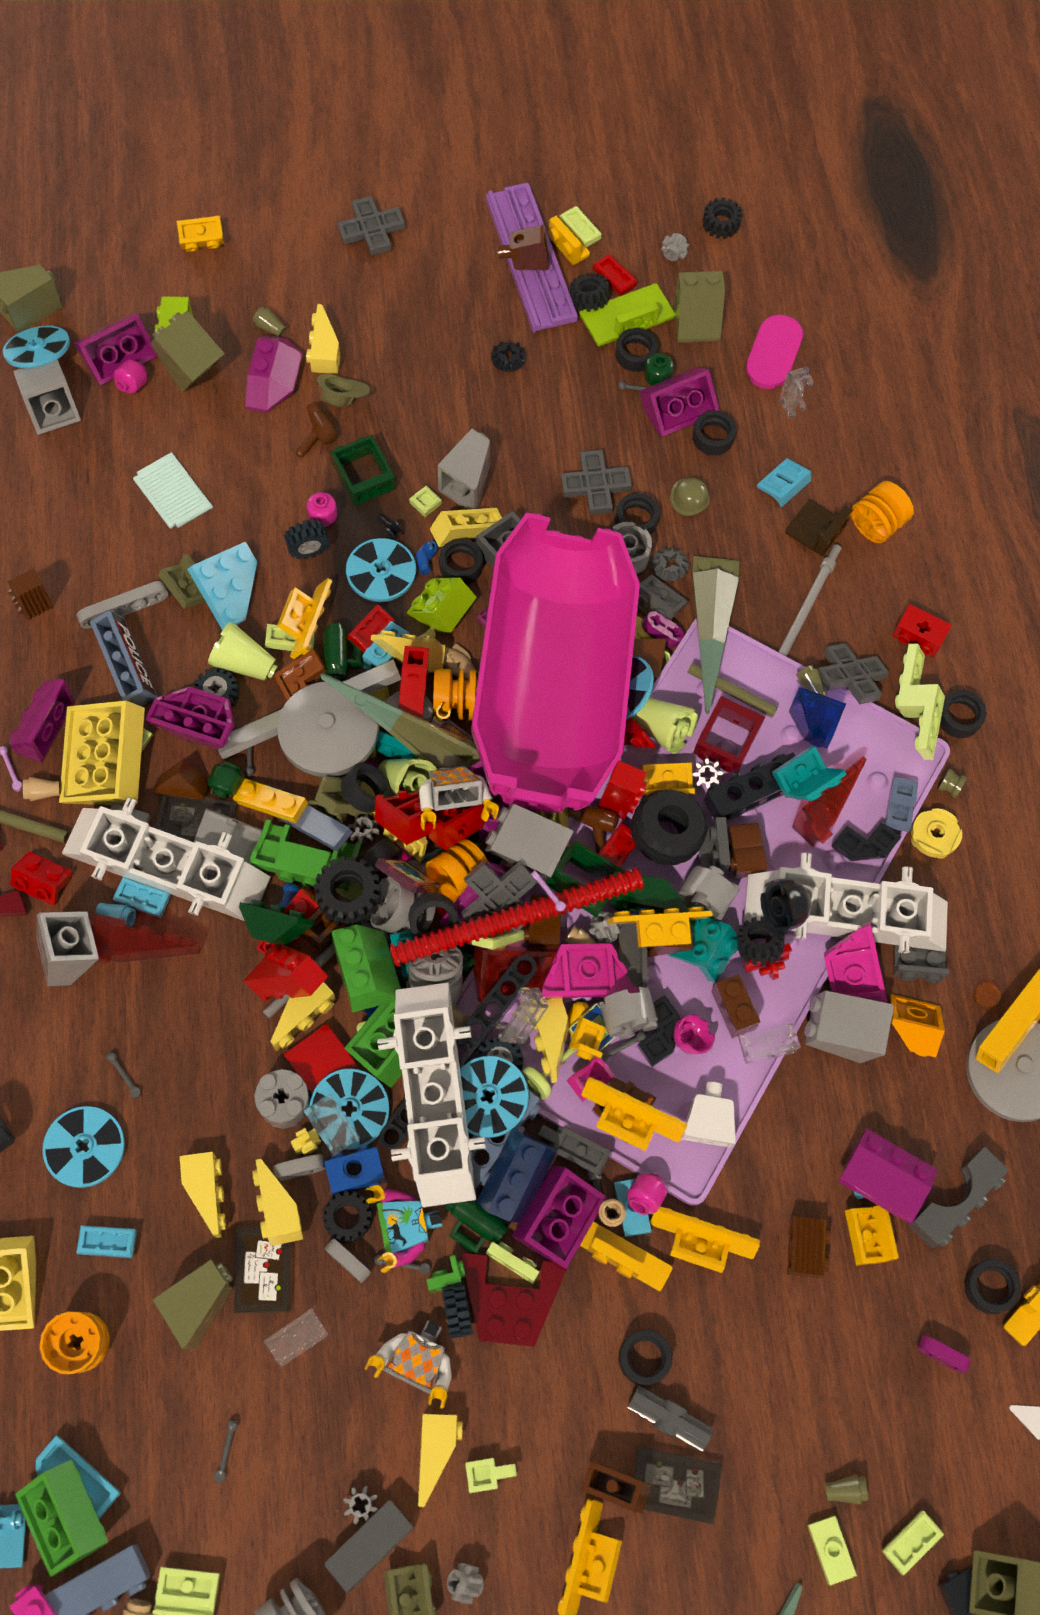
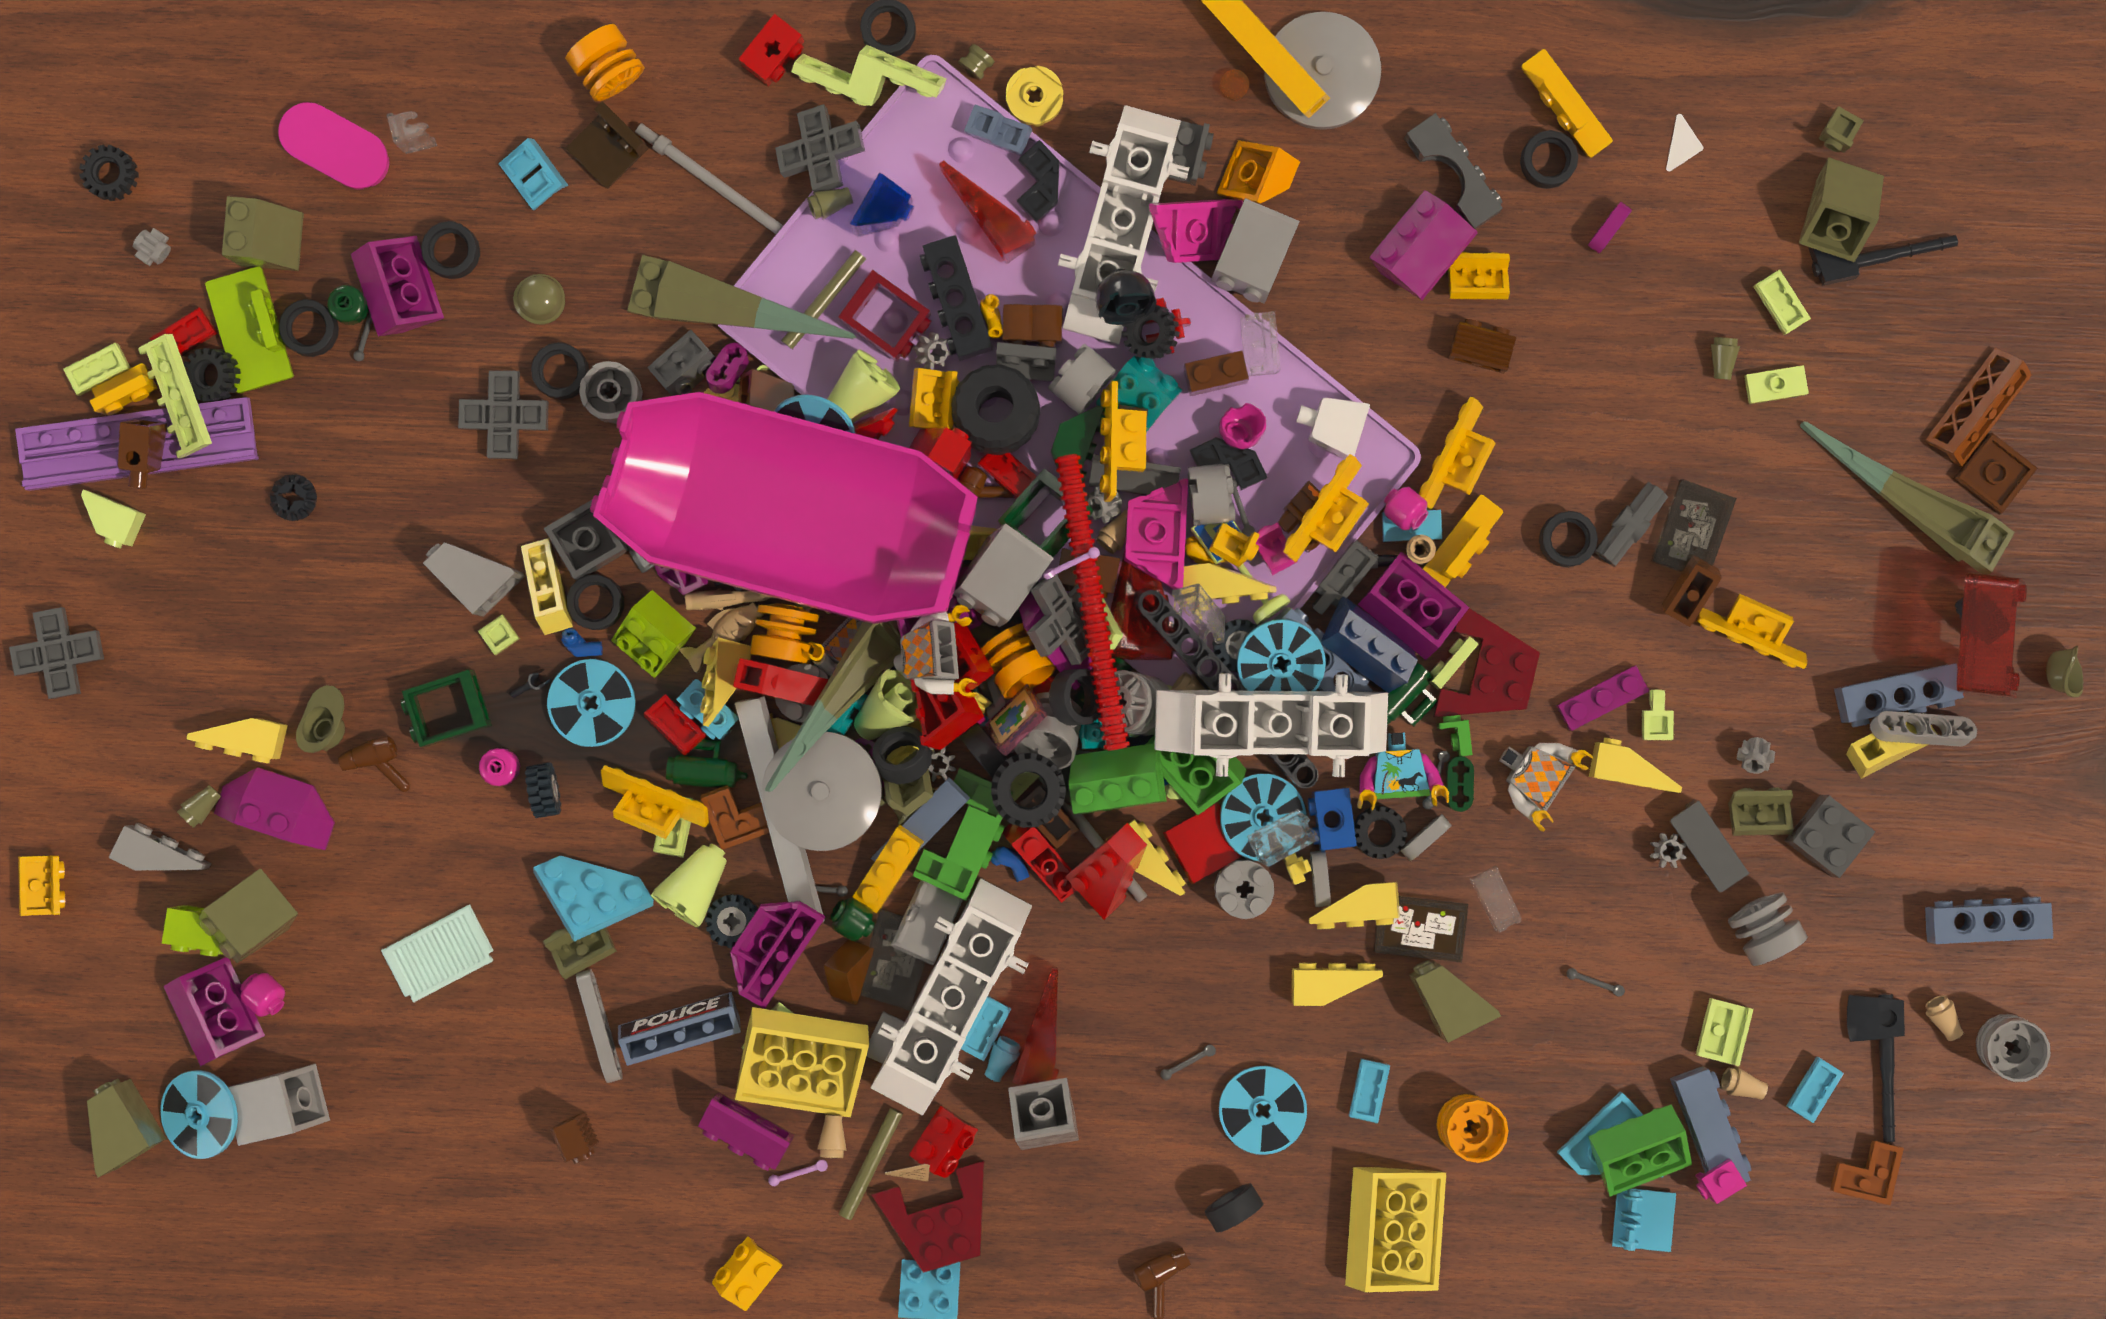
camera: 75 degrees left, 20 degrees up
(13, 859) = (917, 1172): none -> tan sticker
(232, 292) = (144, 851): none -> light grey slope
(273, 923) = (1046, 880): dark green slope -> none
(402, 1294) = (1467, 783): none -> dark green beam
(456, 1311) = (1497, 728): black wheel -> none
(473, 246) = (113, 520): none -> yellowish green slope
(474, 640) = (720, 598): none -> tan animal
(500, 1416) = (1602, 698): none -> magenta plate
(570, 269) = (176, 394): none -> yellowish green hinge
(673, 572) = (646, 341): dark grey gear -> none
(749, 816) = (992, 315): none -> yellow arm
(806, 776) = (964, 236): teal bracket -> none

